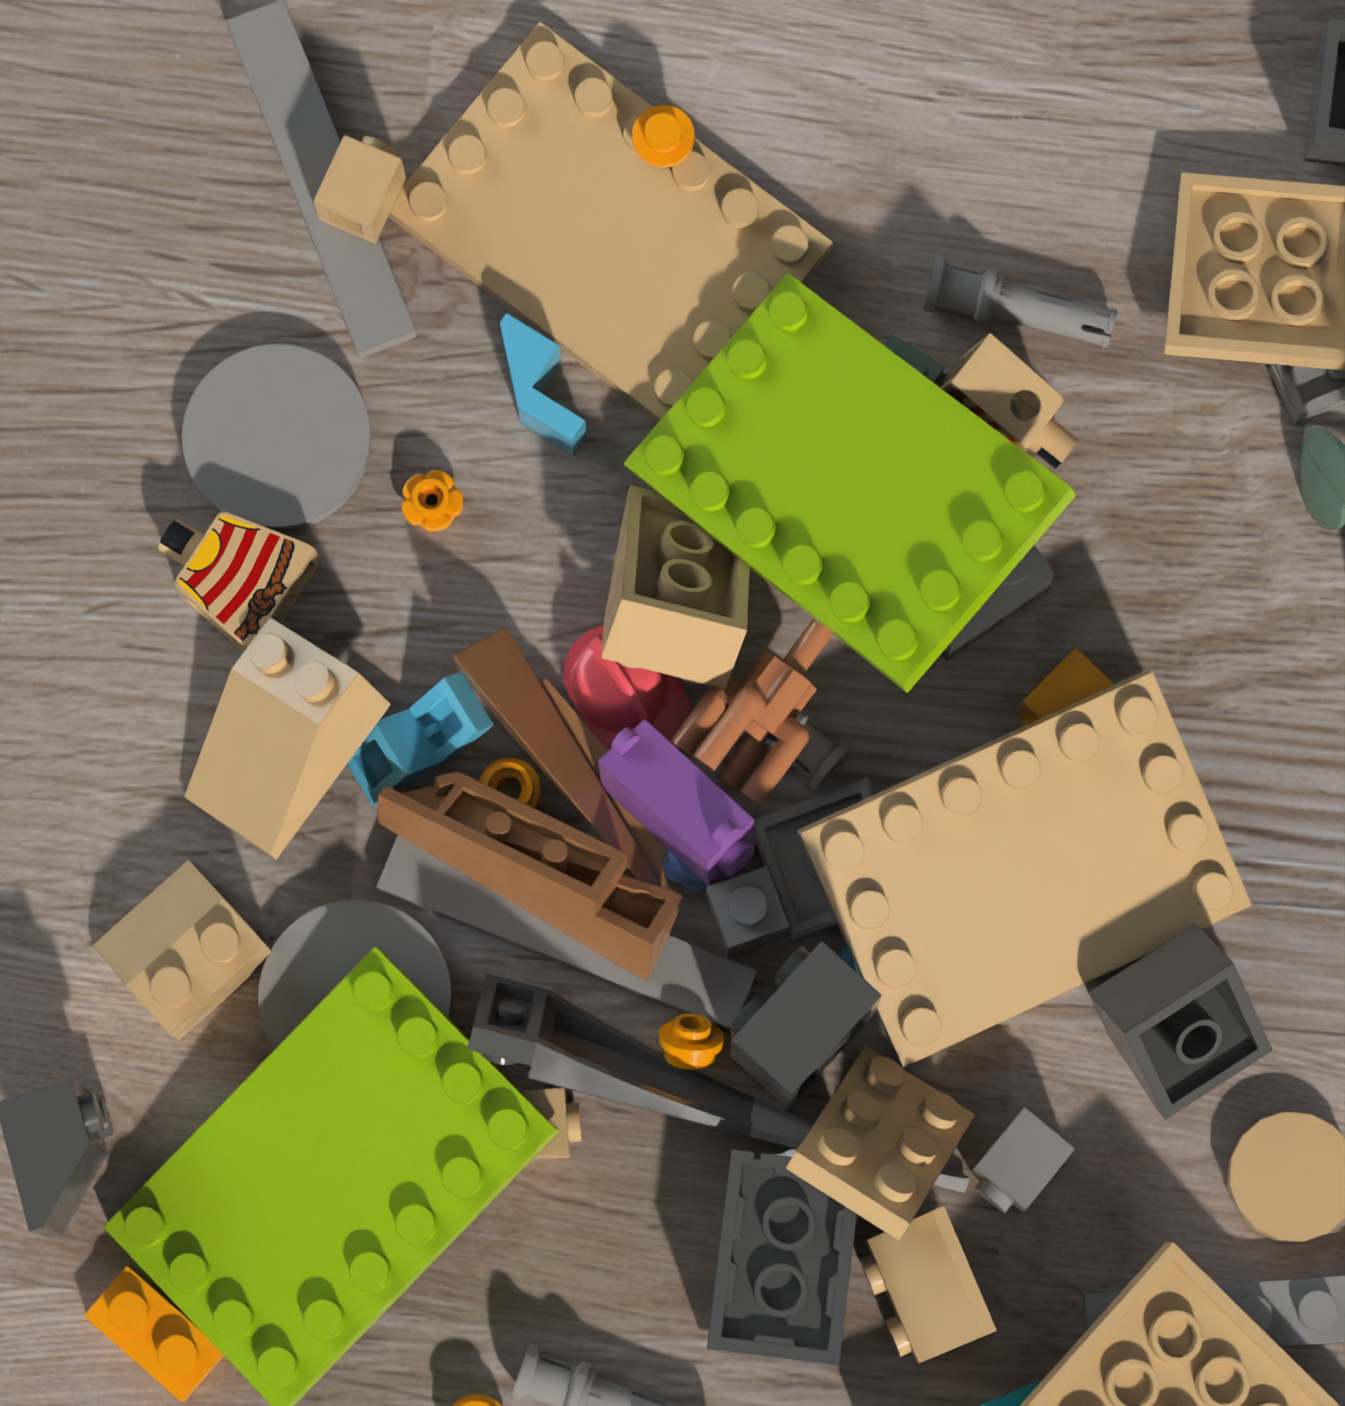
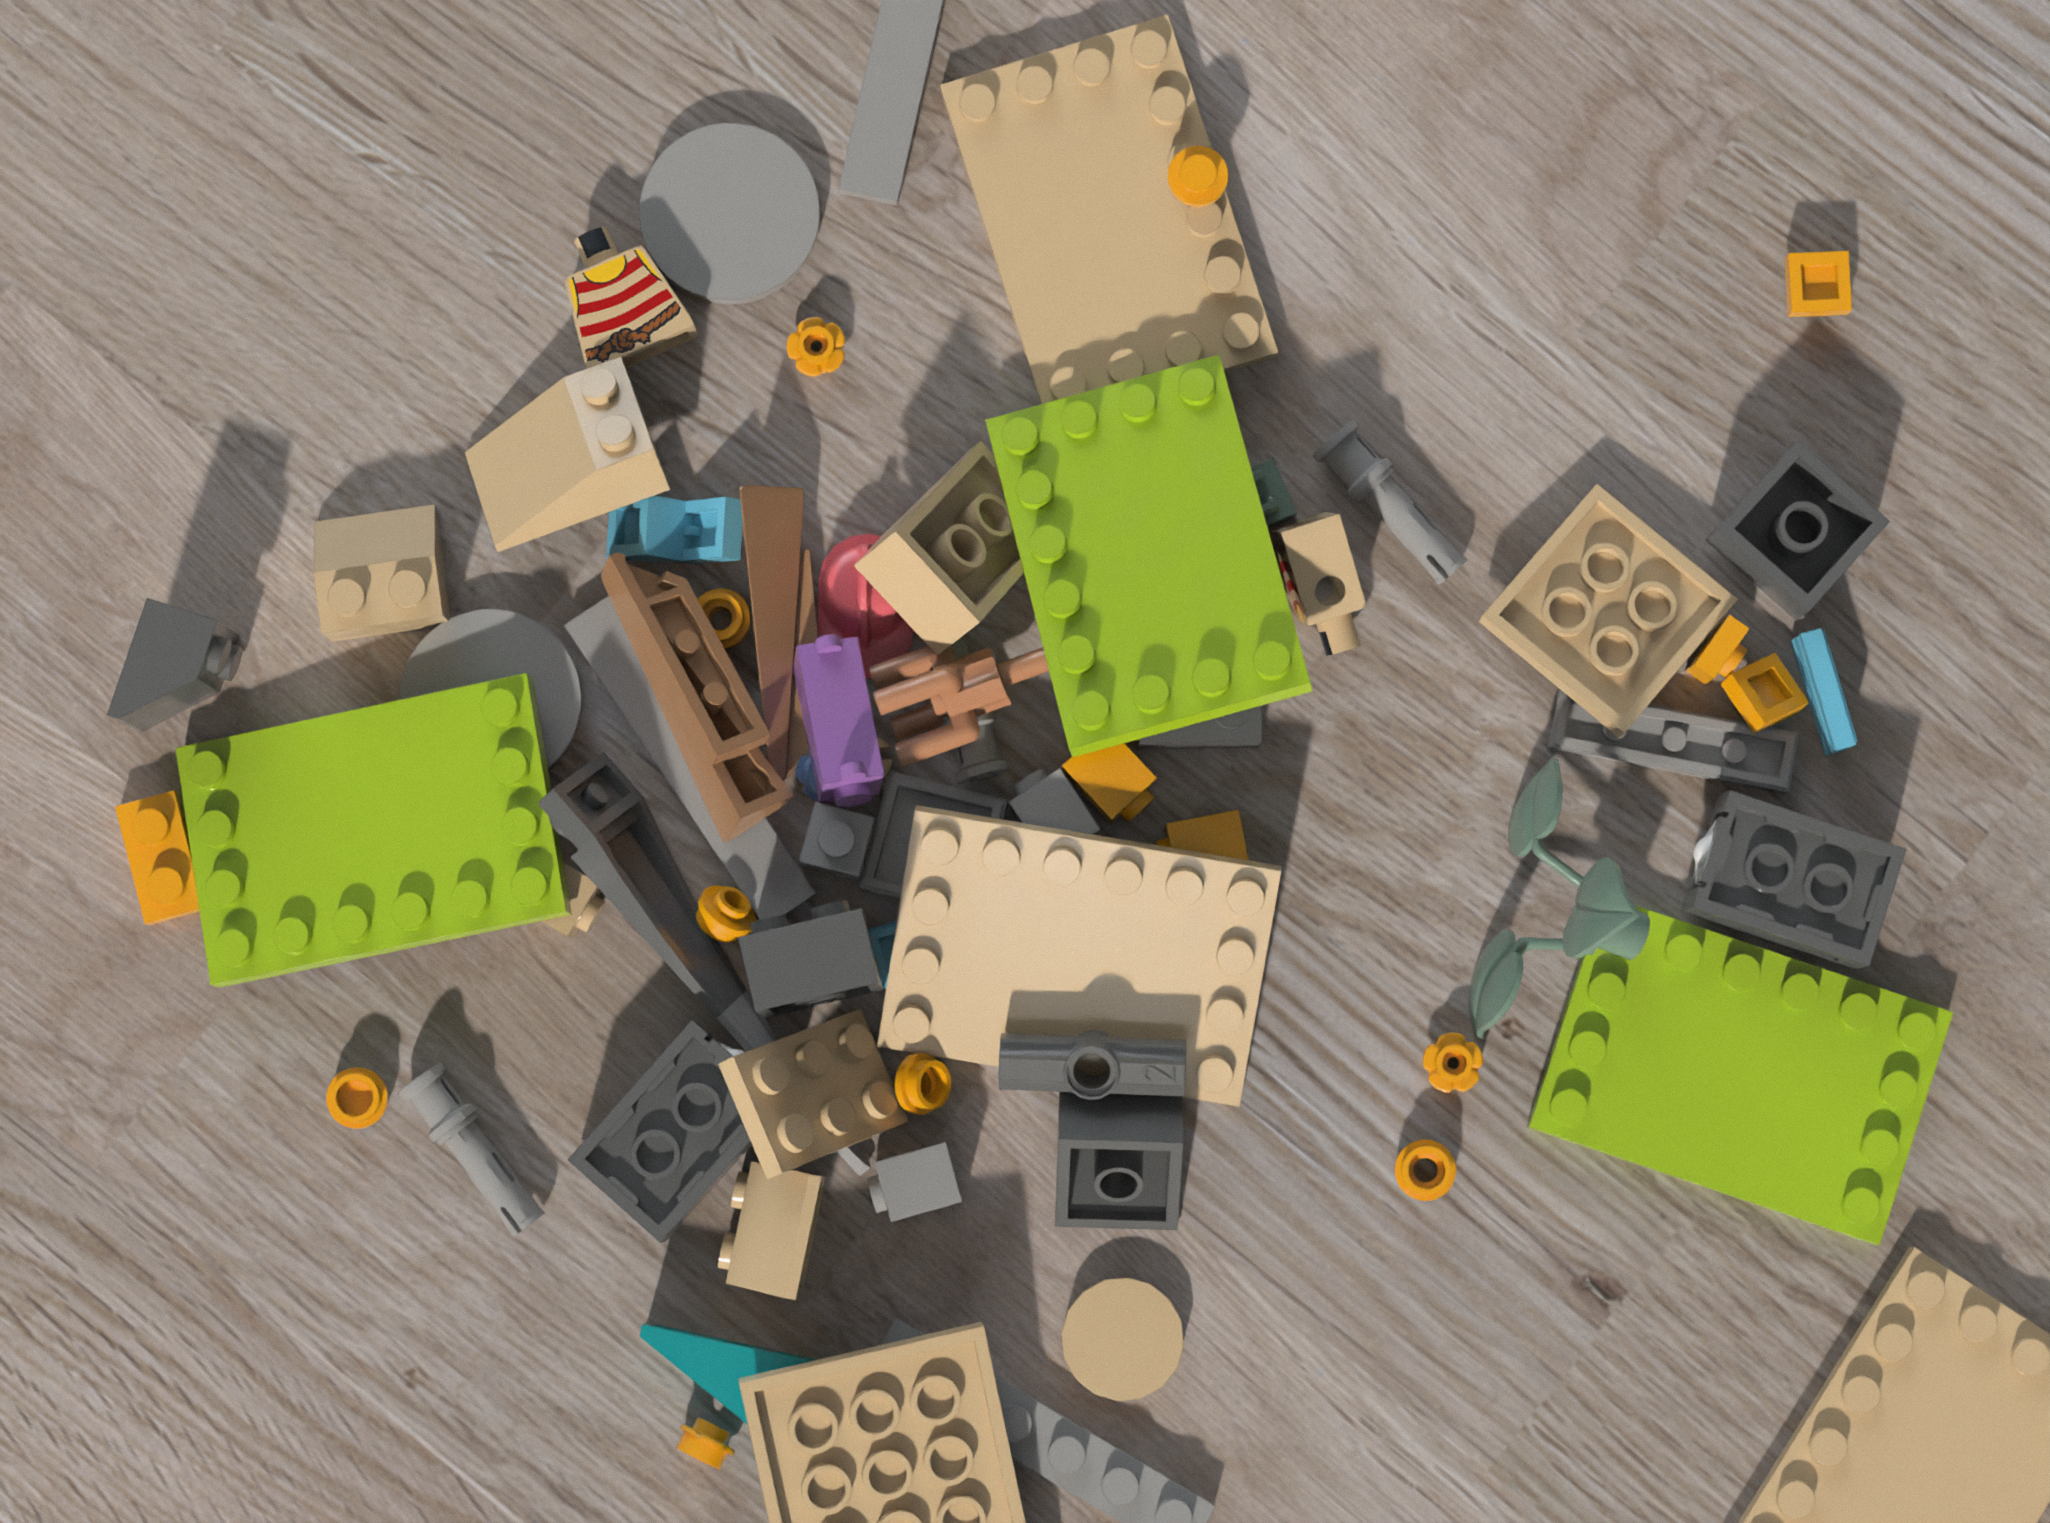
camera: 30 degrees right, 5 degrees up
(360, 187) = (928, 56): tan brick -> none
(531, 365) = (964, 293): medium azure slope -> none
(908, 752) = (1051, 803): none -> light grey brick
(947, 700) = (1112, 781): none -> light orange brick
(965, 1072) = (922, 1083): none -> light orange plate
(1141, 930) = (1050, 1064): none -> dark grey piece

